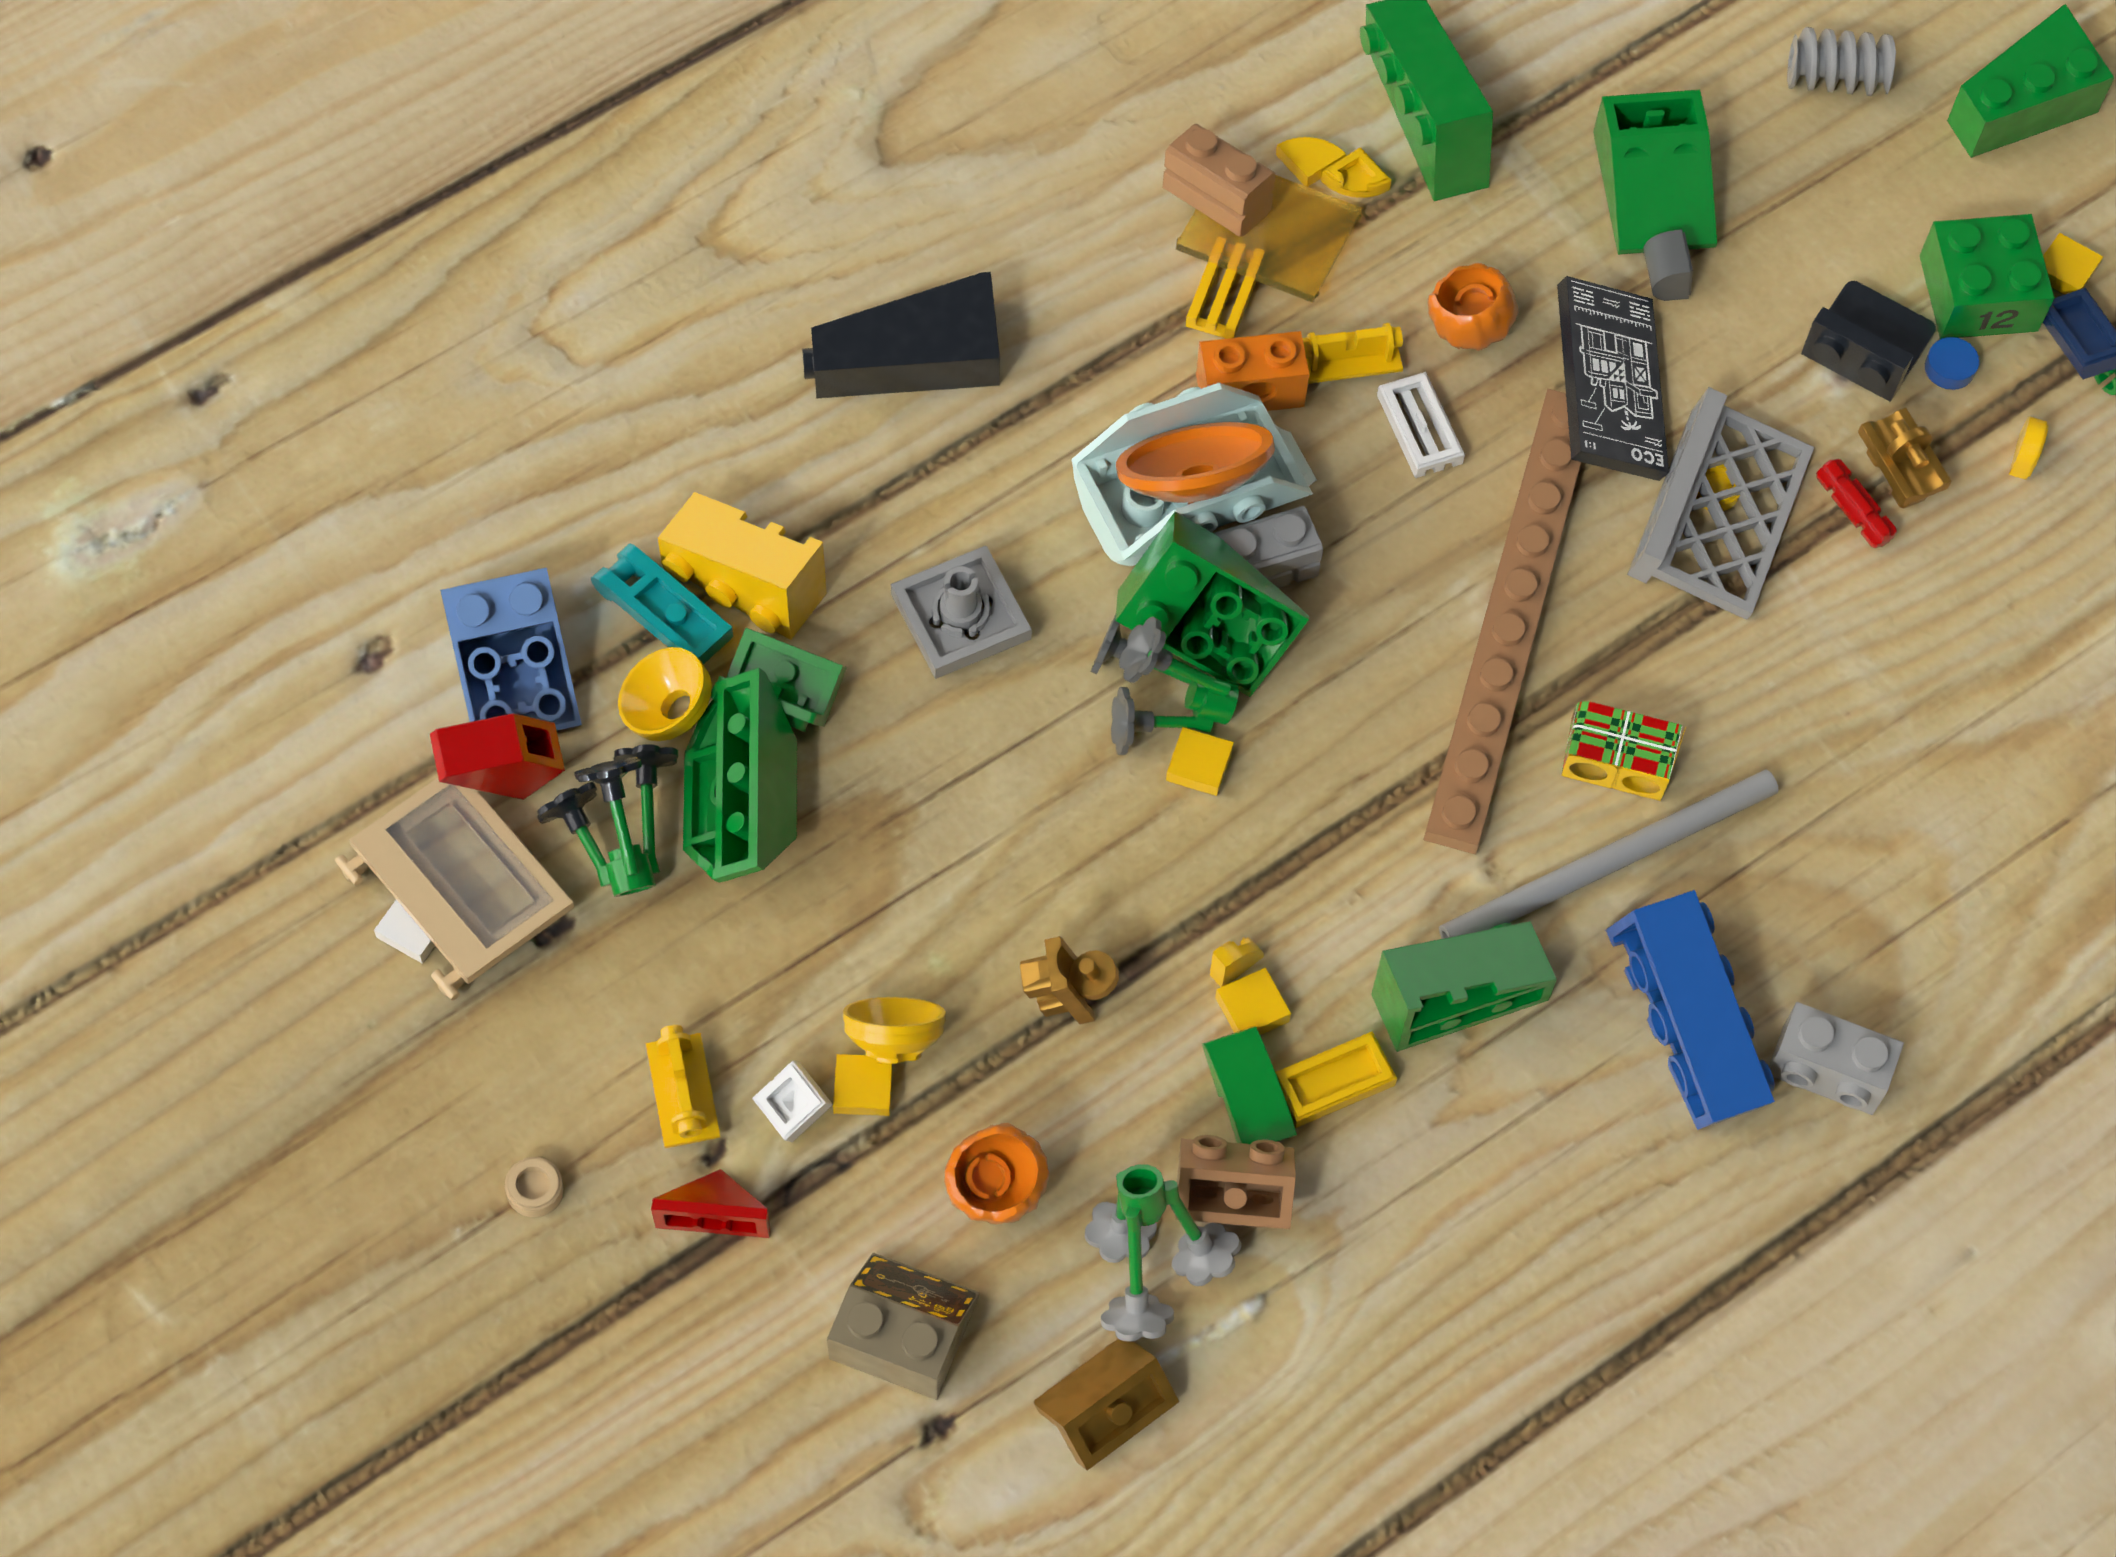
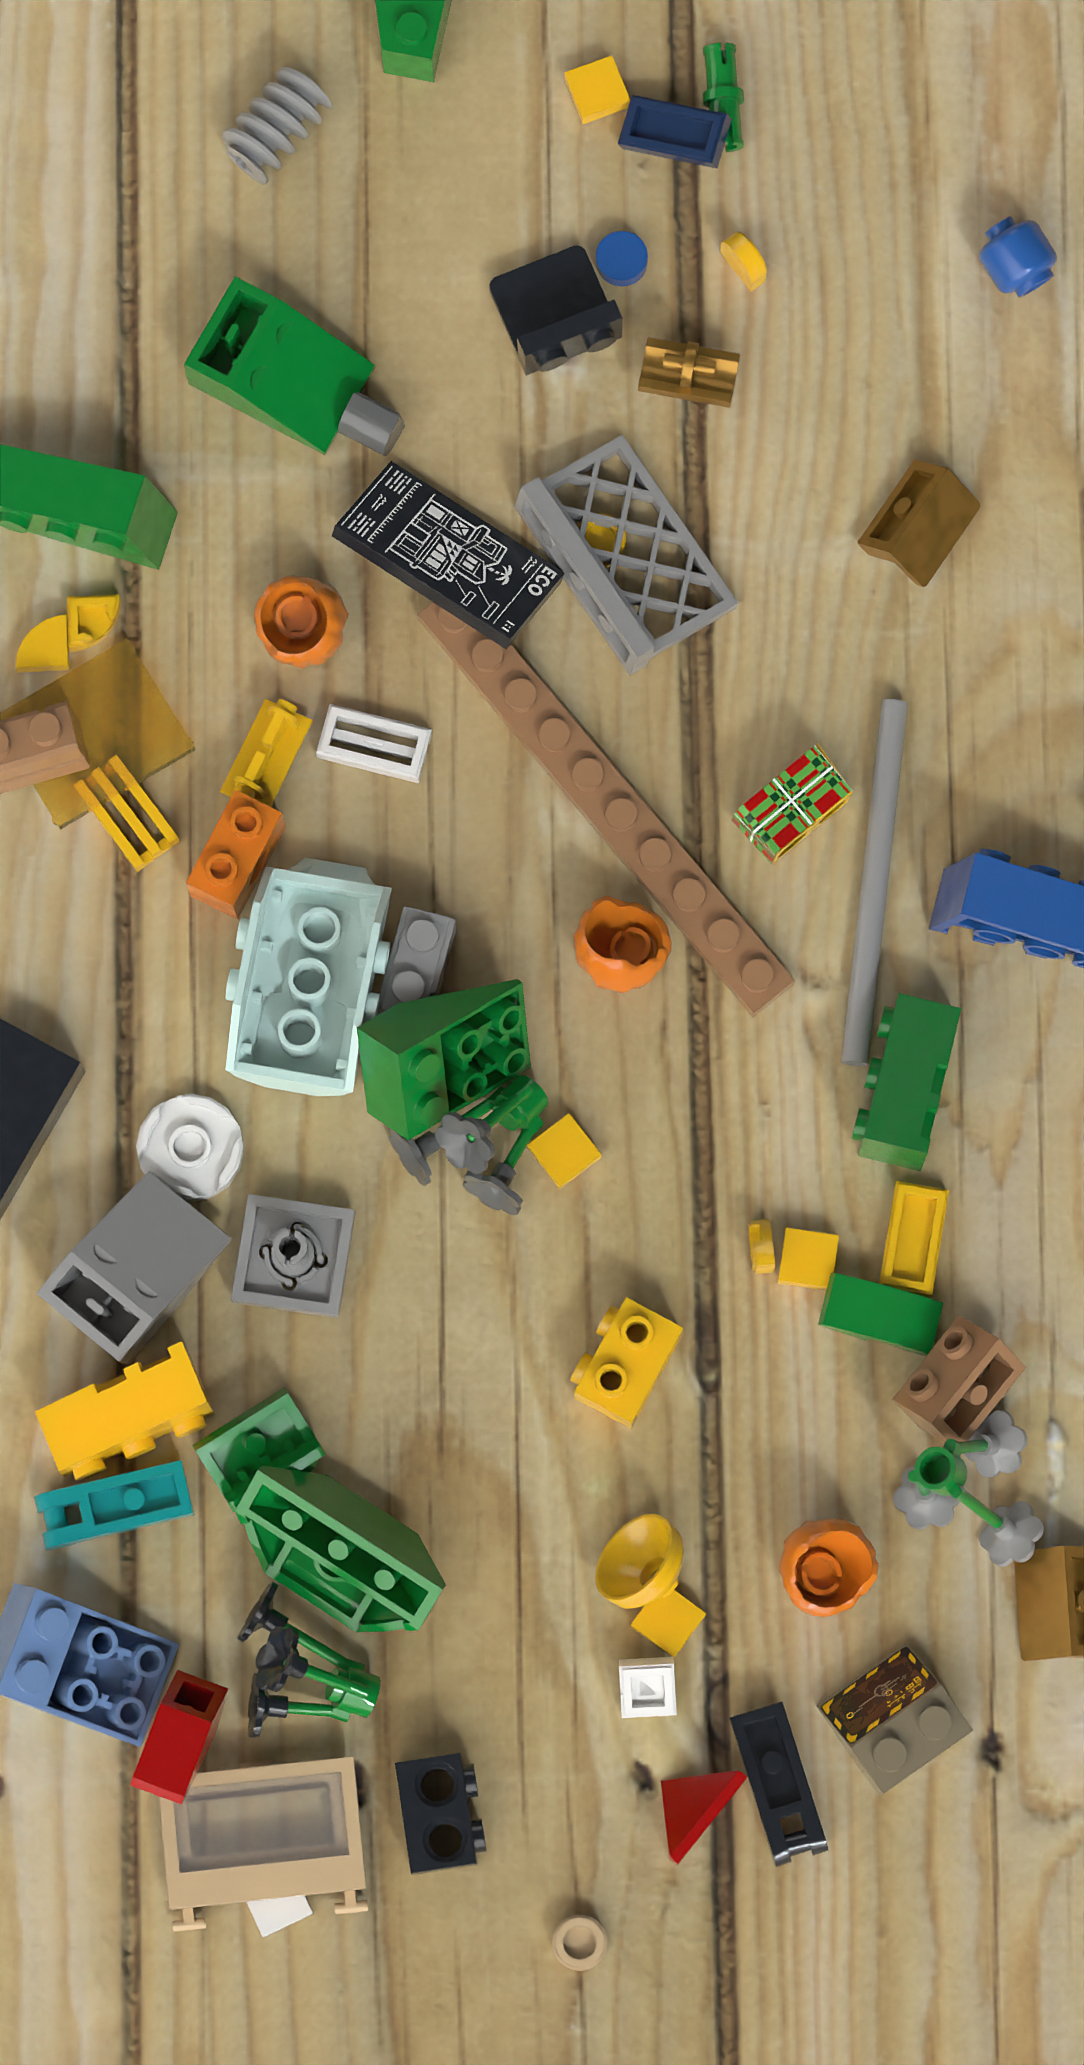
camera: 50 degrees left, 15 degrees up
(557, 990) = (424, 1816): none -> black brick
(655, 686) = (195, 1573): yellow piece -> none
(682, 1087) = (575, 1769): yellow hinge -> none
(782, 1259) = (778, 1781): none -> black plate
(862, 496) = (134, 1268): none -> light grey slope
(994, 490) = (191, 1146): none -> white tile
(1063, 904) = (626, 1362): none -> yellow brick
(1064, 980) = (702, 1395): pearl gold hips -> none
(1196, 461) = (315, 973): orange dish -> none
(1401, 688) = (621, 944): none -> orange hair
(1856, 503) = (697, 440): red axle -> none
(1935, 709) = (920, 521): none -> pearl gold panel
(1986, 276) = (567, 169): green brick -> none

